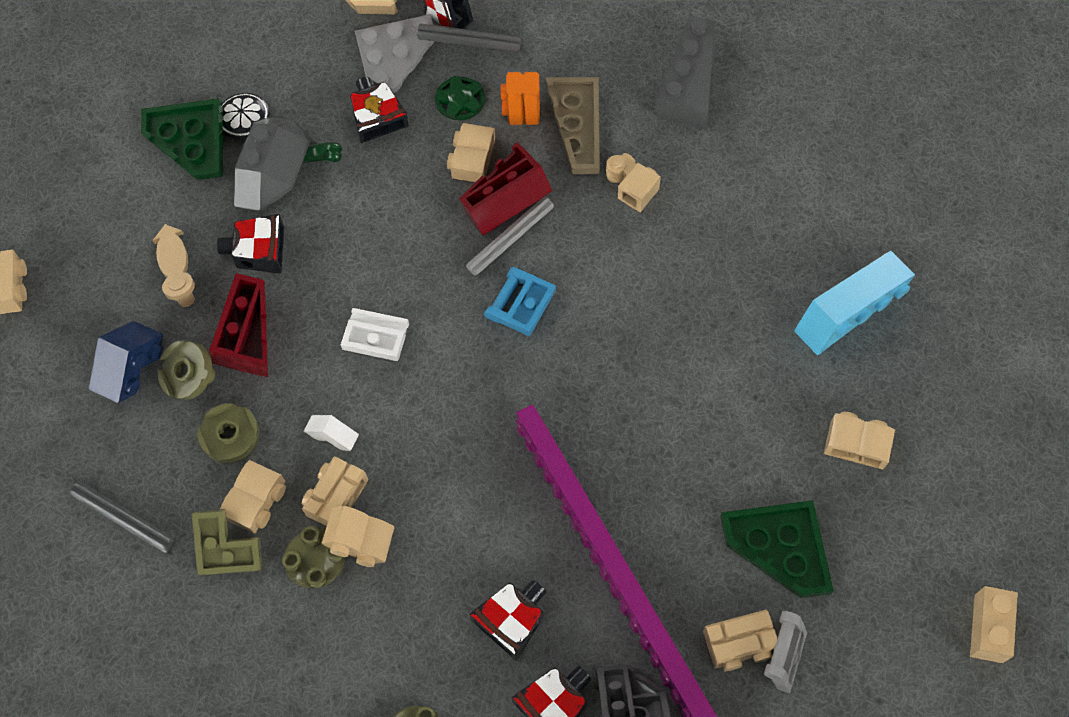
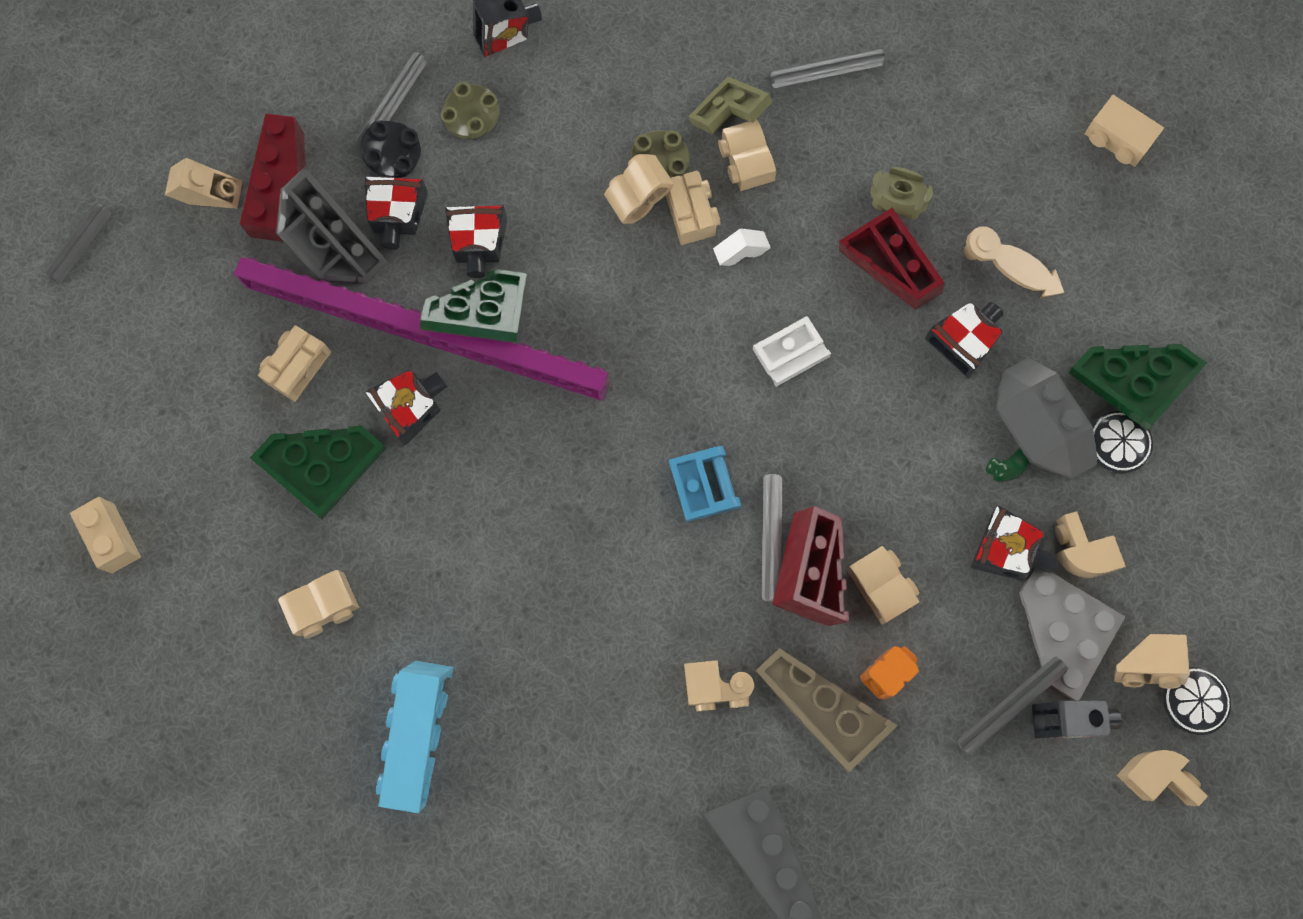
camera: 140 degrees right, 10 degrees up
(120, 360) = (957, 157): dark blue brick -> none
(232, 449) = (818, 199): olive plate -> none
(337, 73) = (1085, 557): none -> tan brick
(460, 98) = (955, 637): dark green wheel -> none
(561, 541) = (479, 309): none -> plate
(678, 529) = (407, 403): none -> torso
(787, 651) = (247, 372): light grey plate -> none

